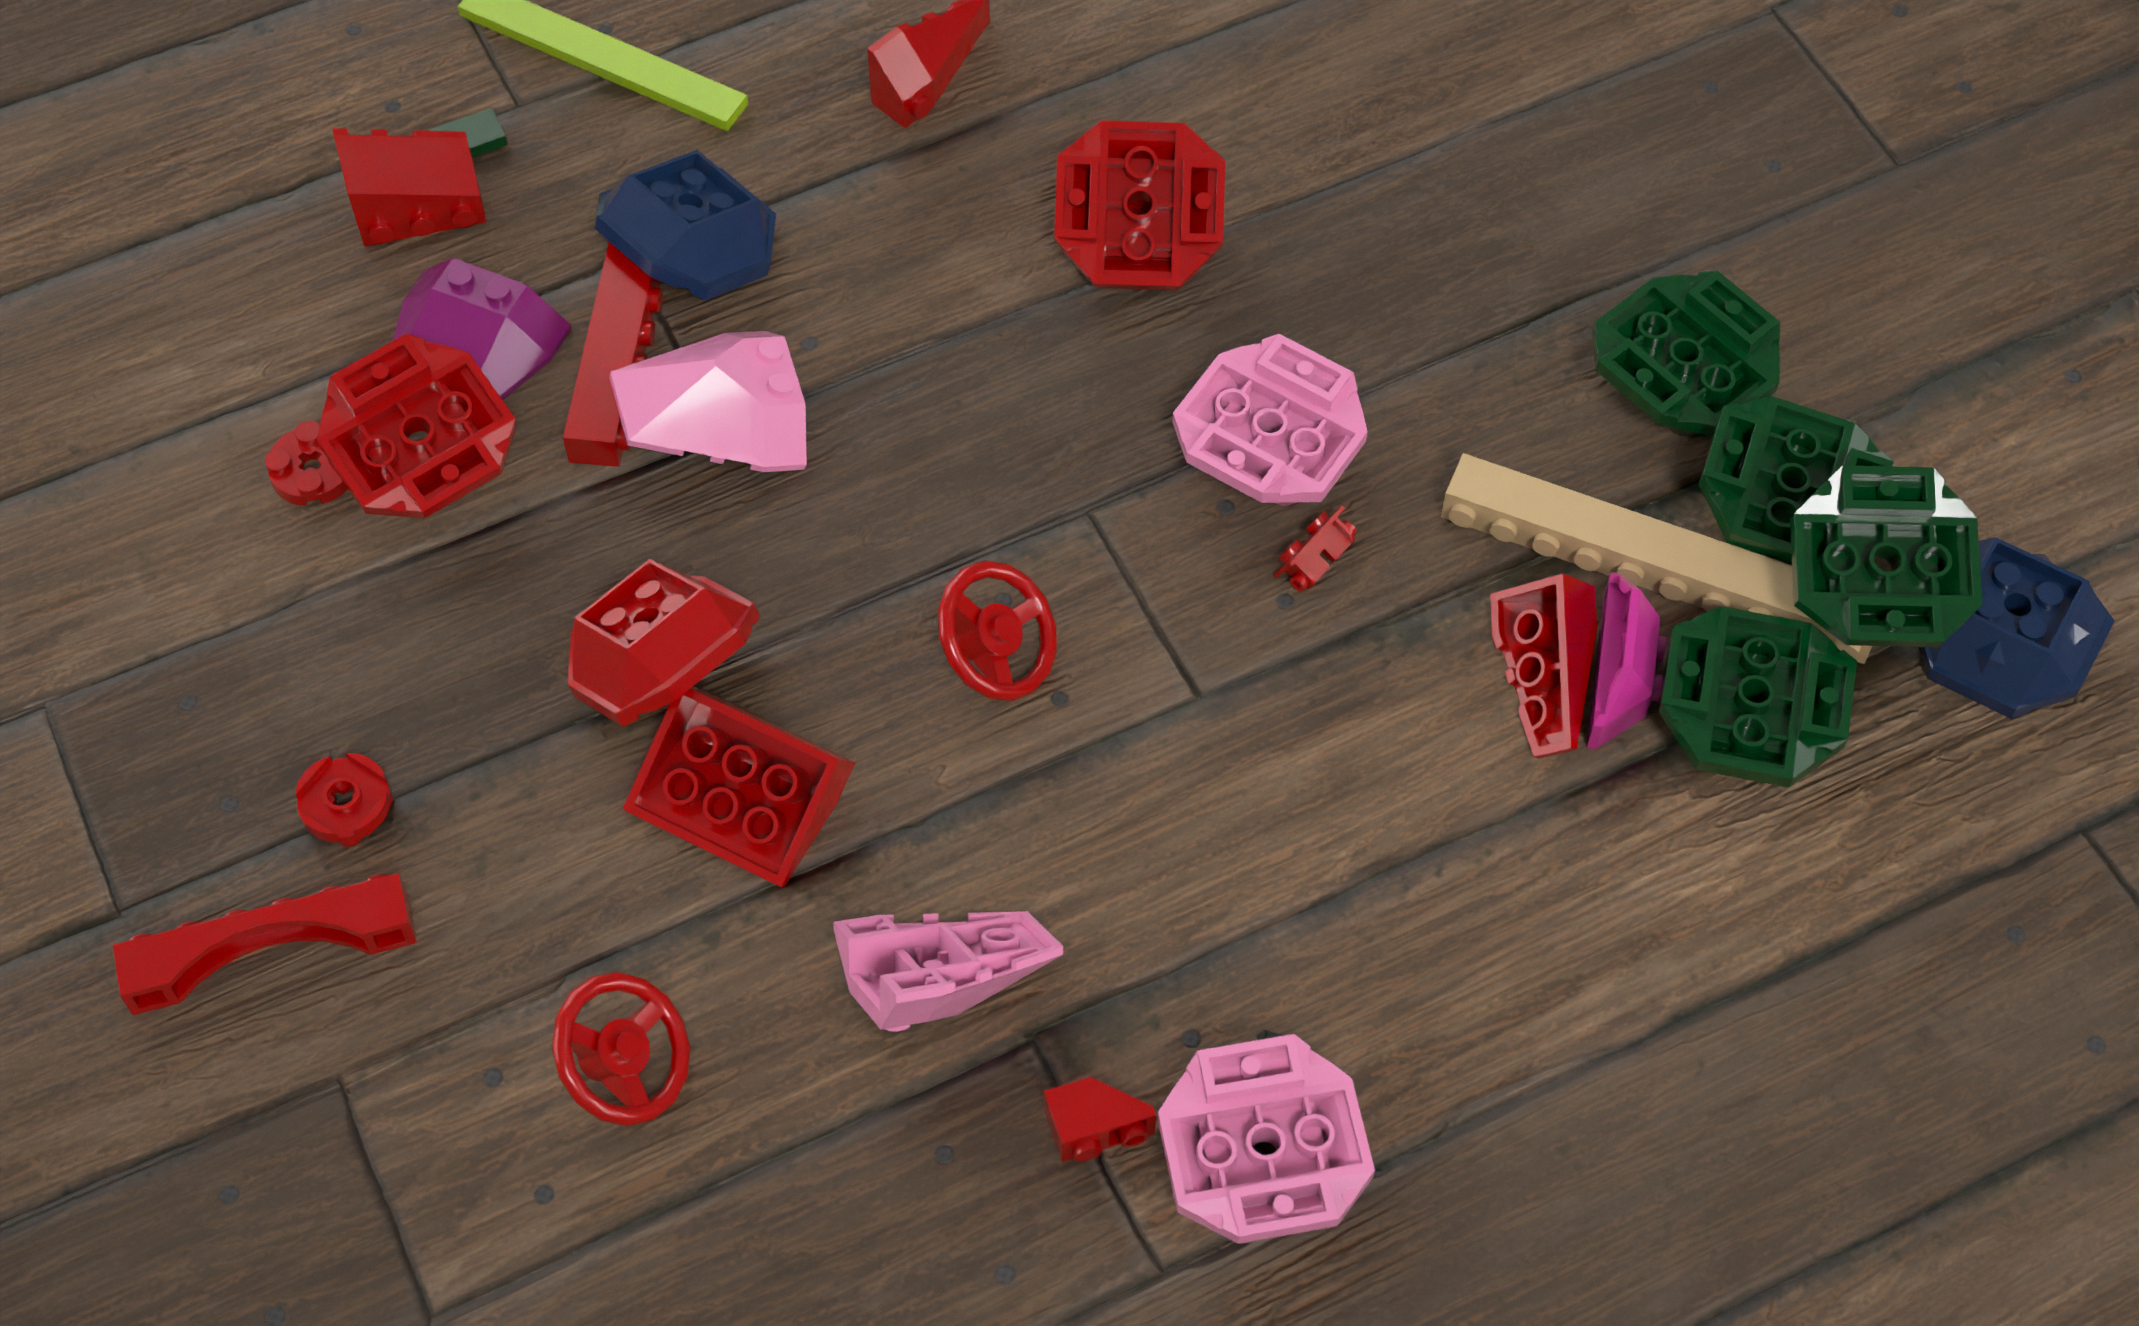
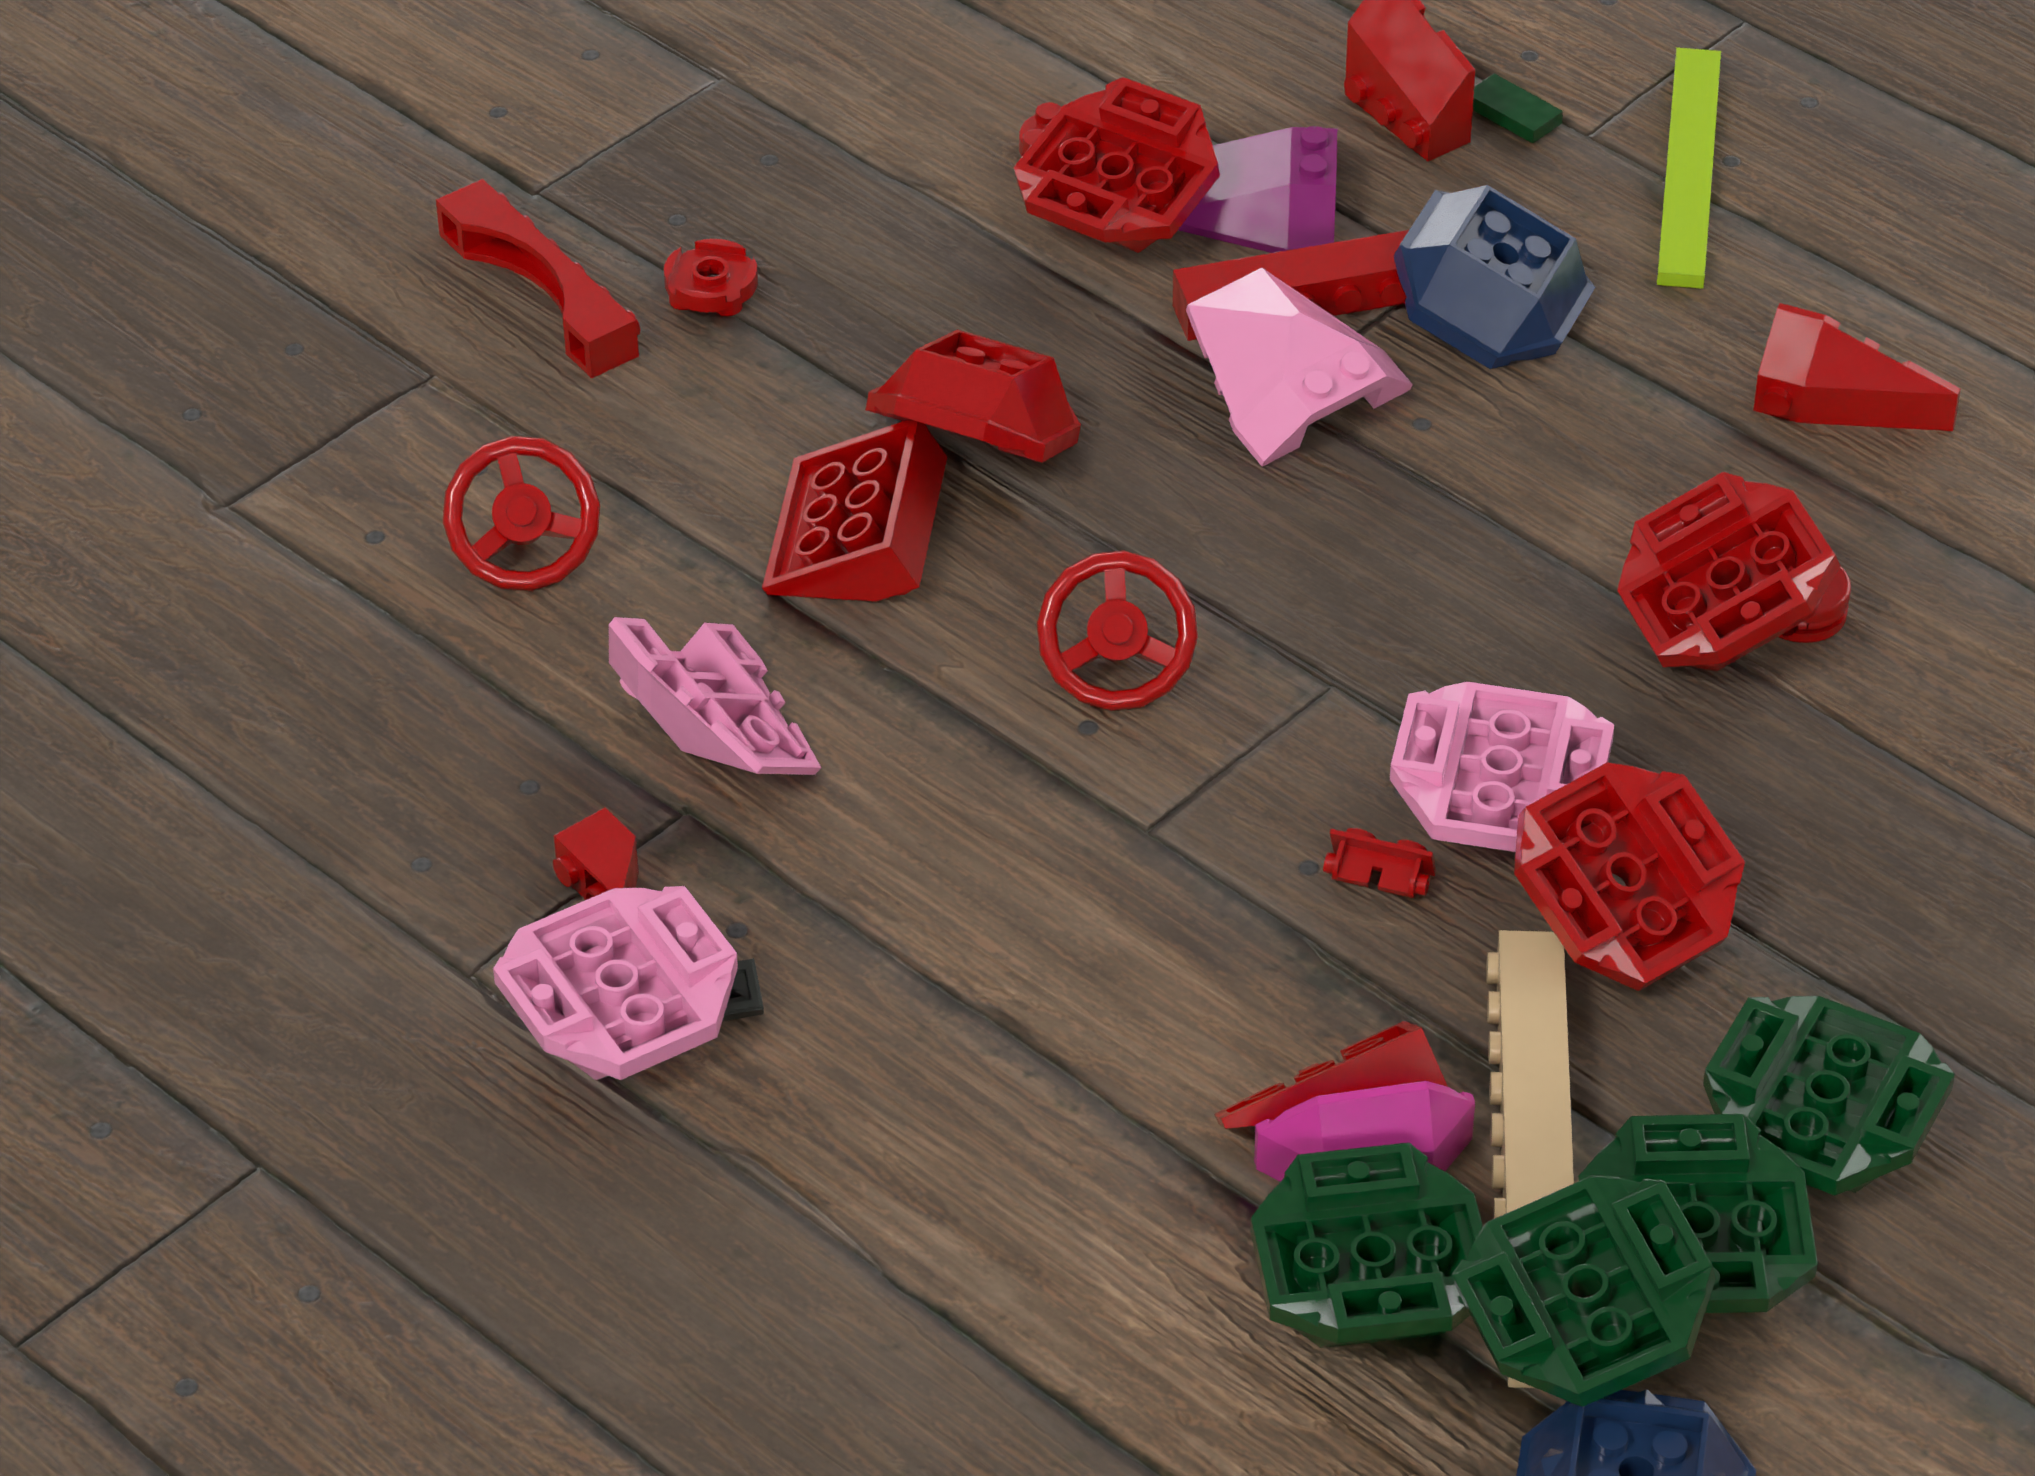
camera: 70 degrees right, 15 degrees down
(1432, 385) = (1659, 842): none -> red piece

